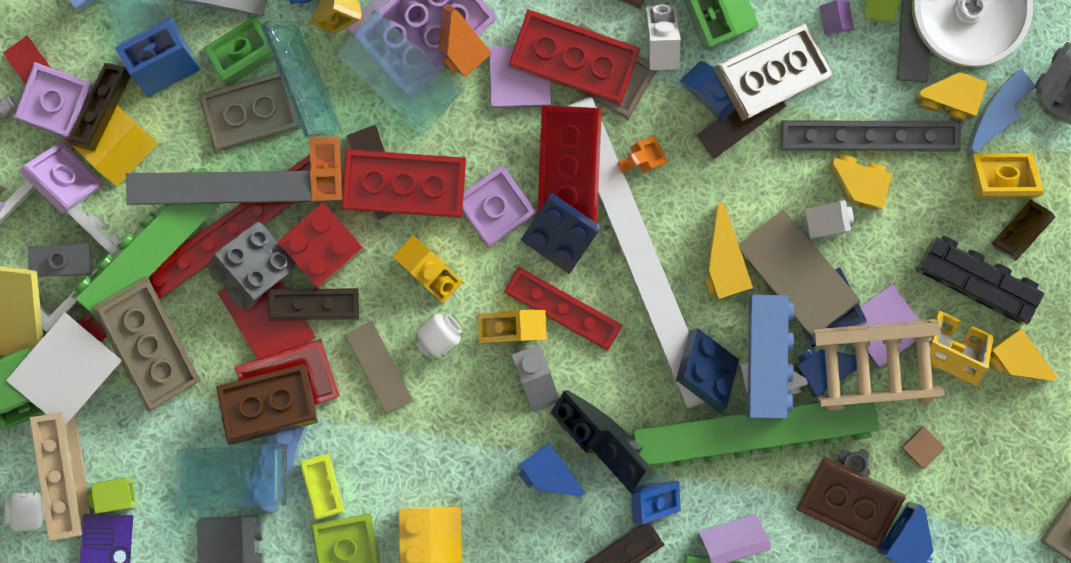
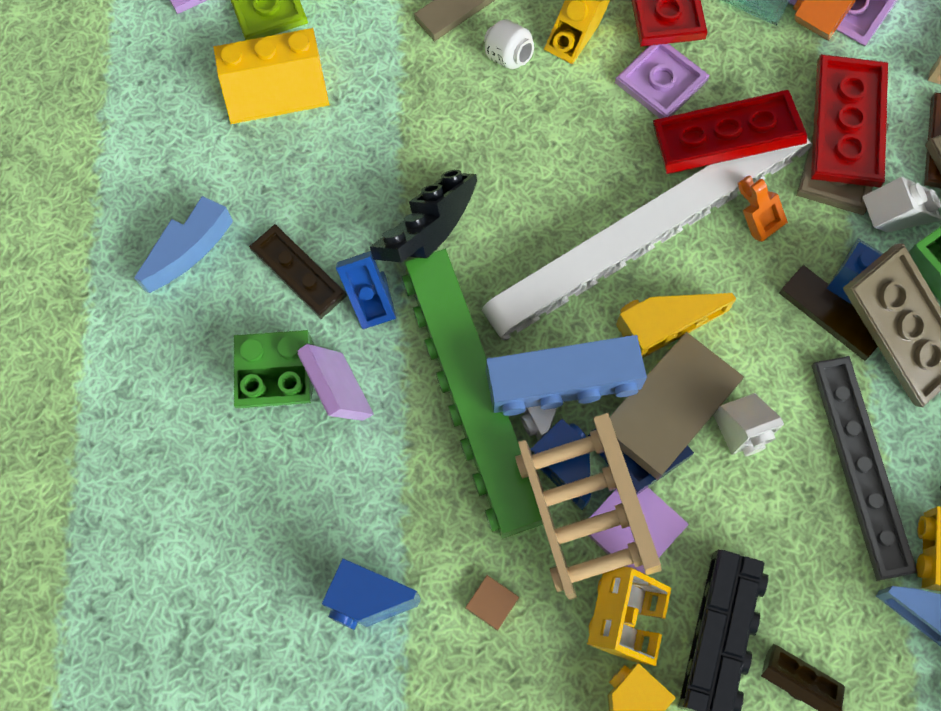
camera: 90 degrees right, 15 degrees down
(512, 326) = (536, 115): yellow slope -> none
(513, 86) = (797, 70): lavender tile -> none
(535, 377) = (486, 142): light grey slope -> none
(549, 473) = (382, 168): blue slope -> none
(560, 233) = (651, 137): dark blue plate -> none
(563, 308) = (566, 165): red tile -> none
(707, 370) = (532, 313): dark blue plate -> none
(850, 502) = (407, 521): reddish brown tile -> none
(860, 183) = (803, 464): yellow slope -> none
(860, 457) = (459, 510): dark grey plate -> none
(1005, 177) = (862, 645): yellow slope -> none

